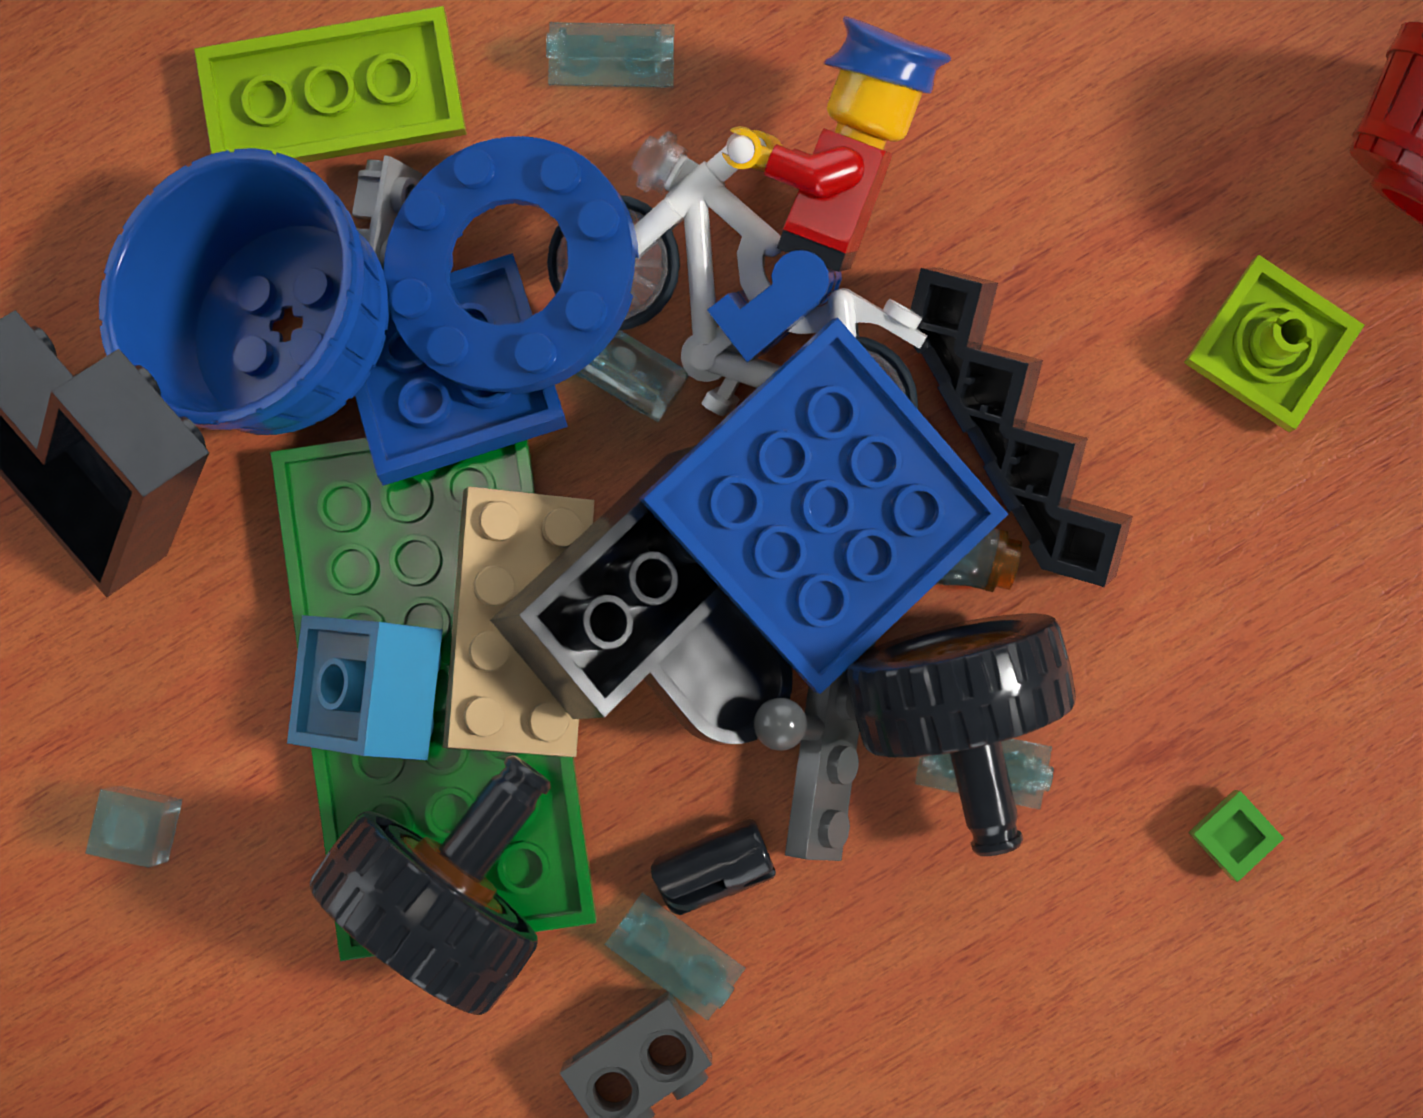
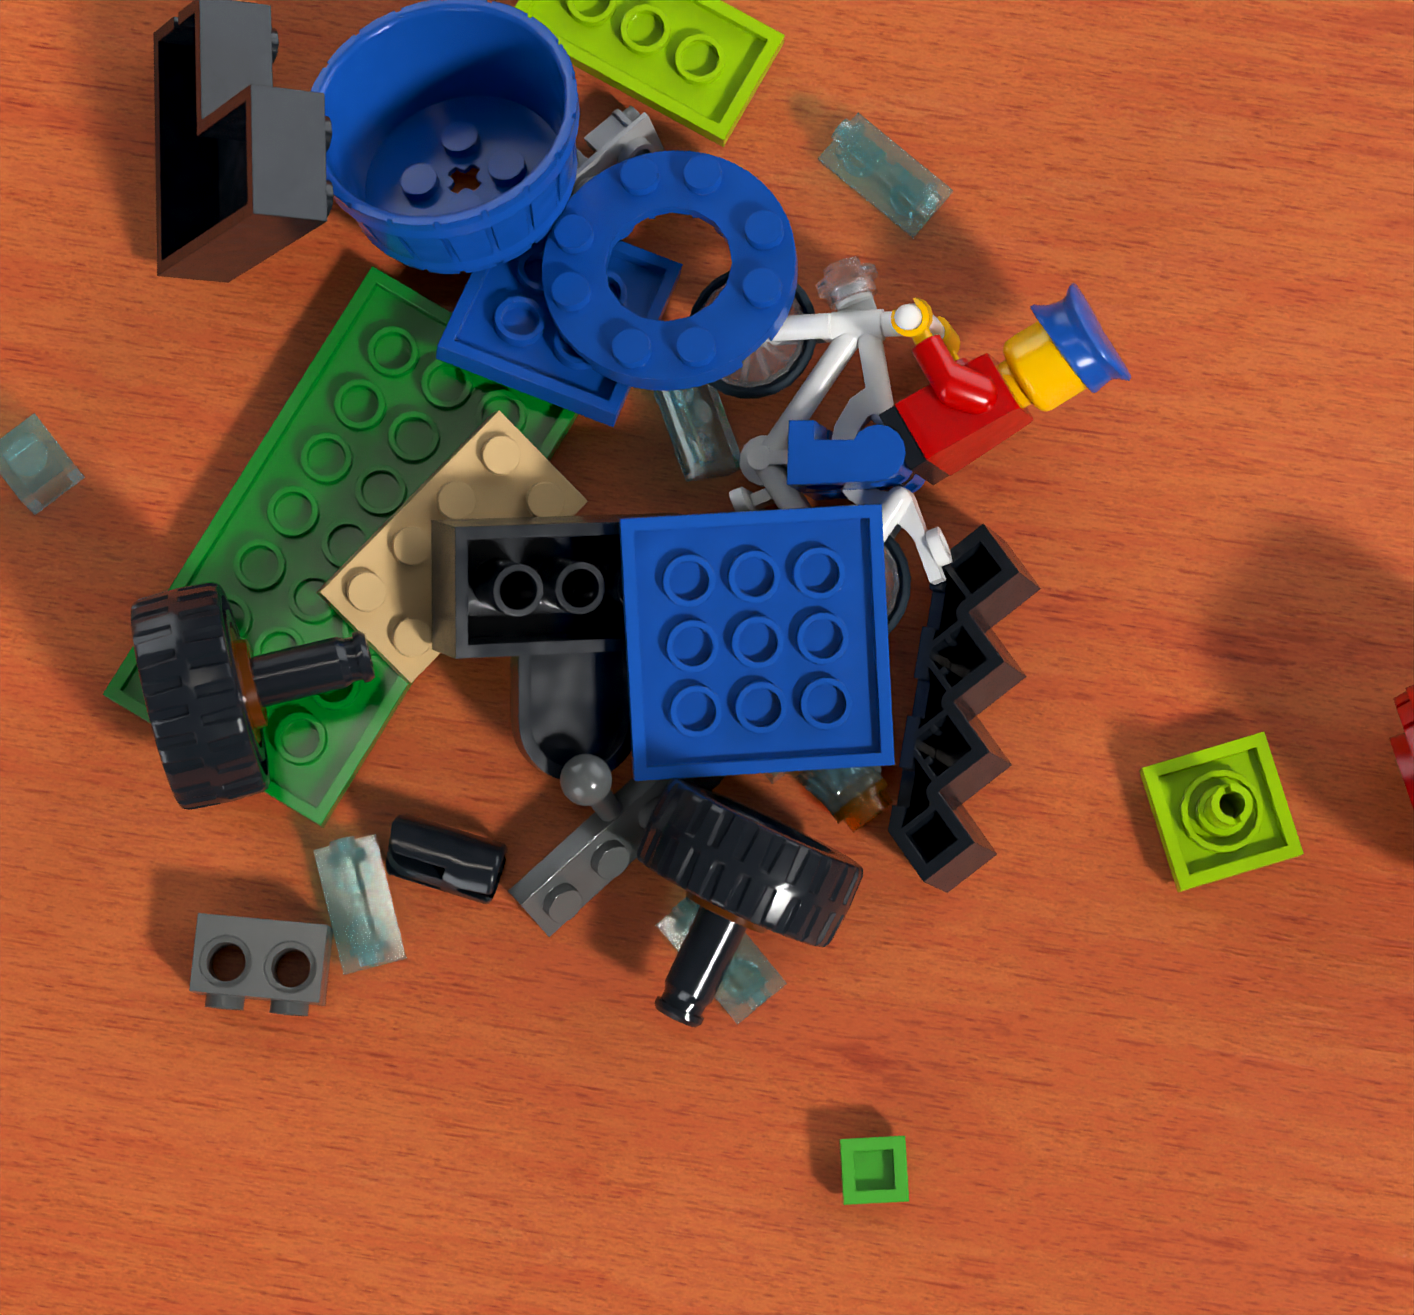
camera: 40 degrees right, 5 degrees down
(365, 687) = (296, 498): dark azure slope -> none

